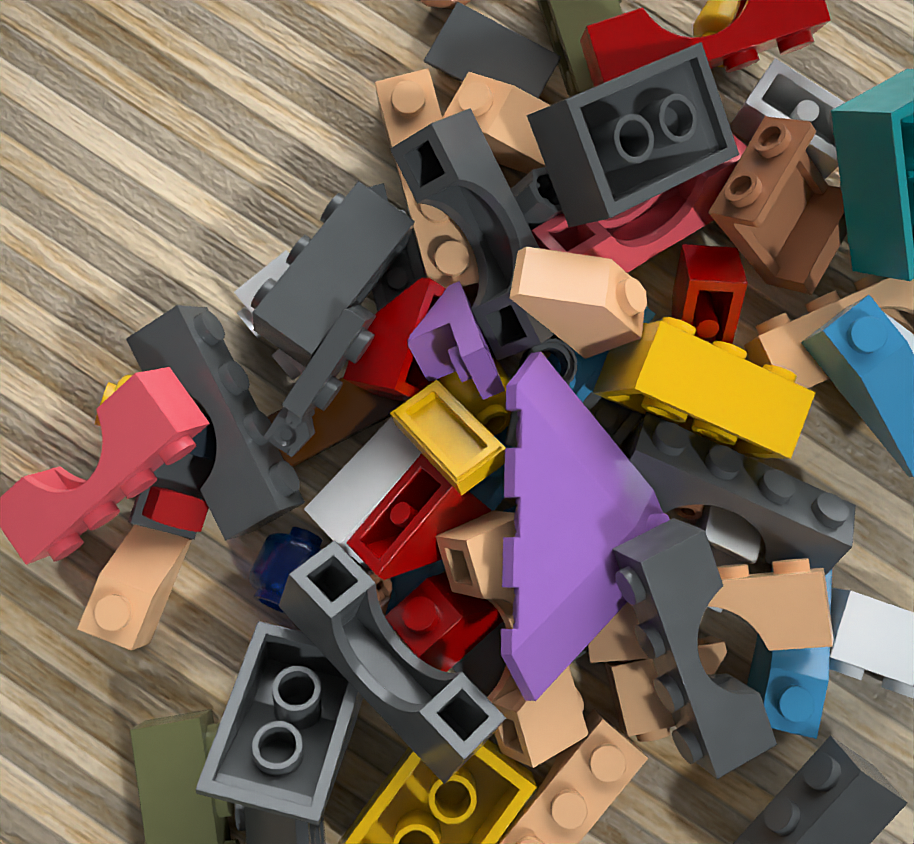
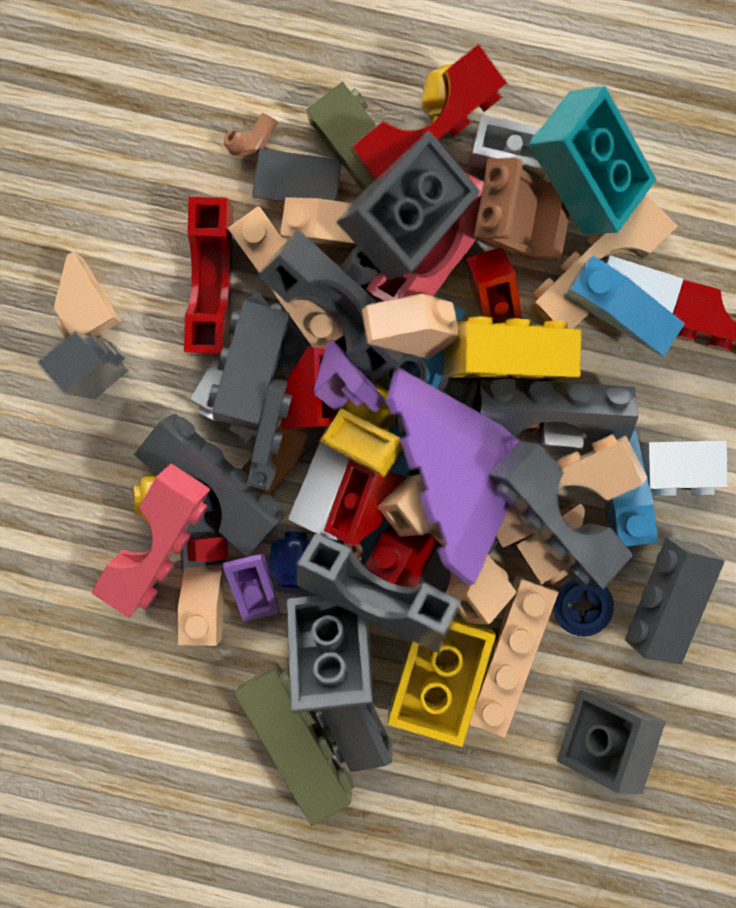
camera: 20 degrees left, 5 degrees up
(102, 186) = (84, 365): none -> dark grey brick
(140, 114) = (81, 301): none -> light nougat slope
(216, 585) = (252, 587): none -> medium lavender slope
(329, 140) = (211, 269): none -> red arch
(682, 815) = (594, 619): none -> dark blue gear

